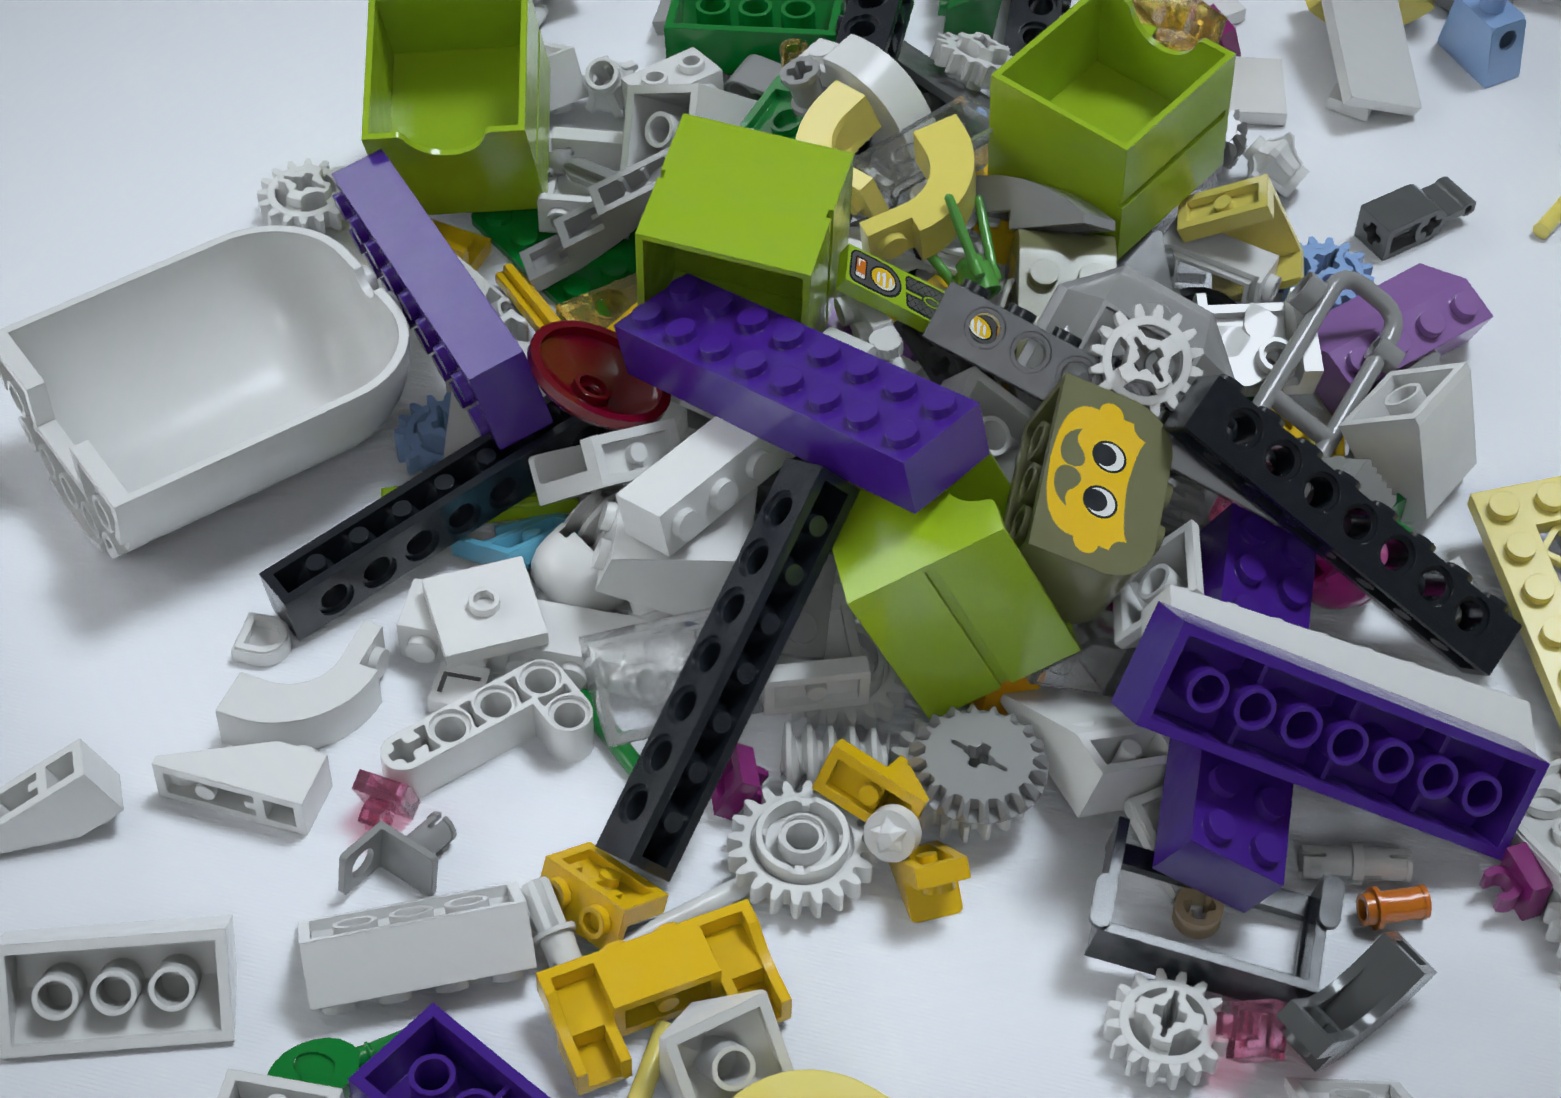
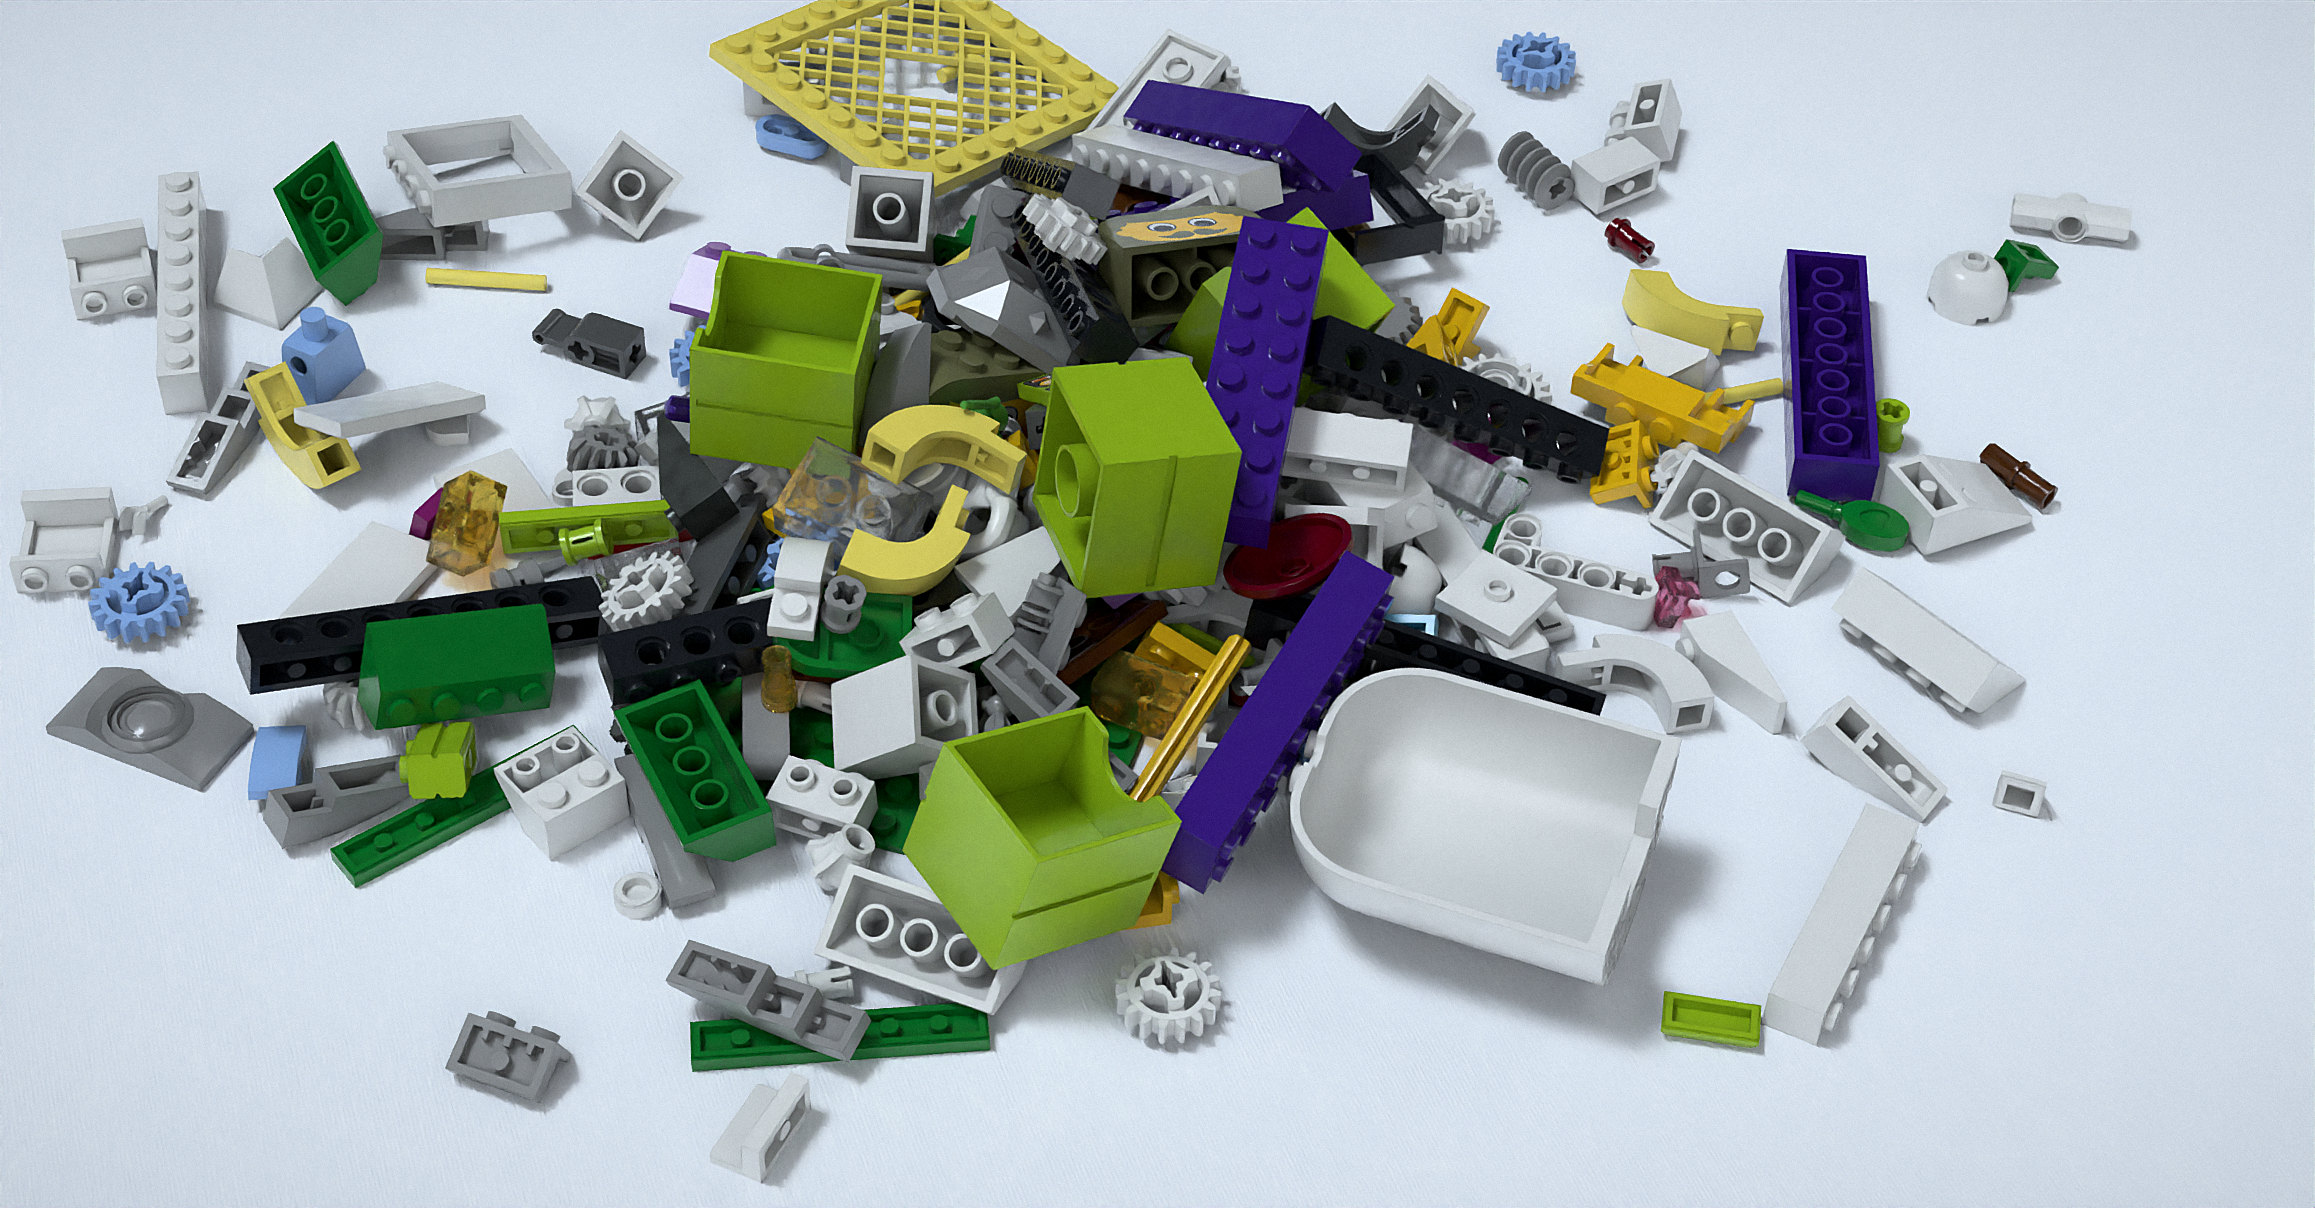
camera: 125 degrees left, 5 degrees down
(892, 833) = (1459, 337): white tile -> none
(1253, 1031) = (1425, 165): clear pink tile -> none

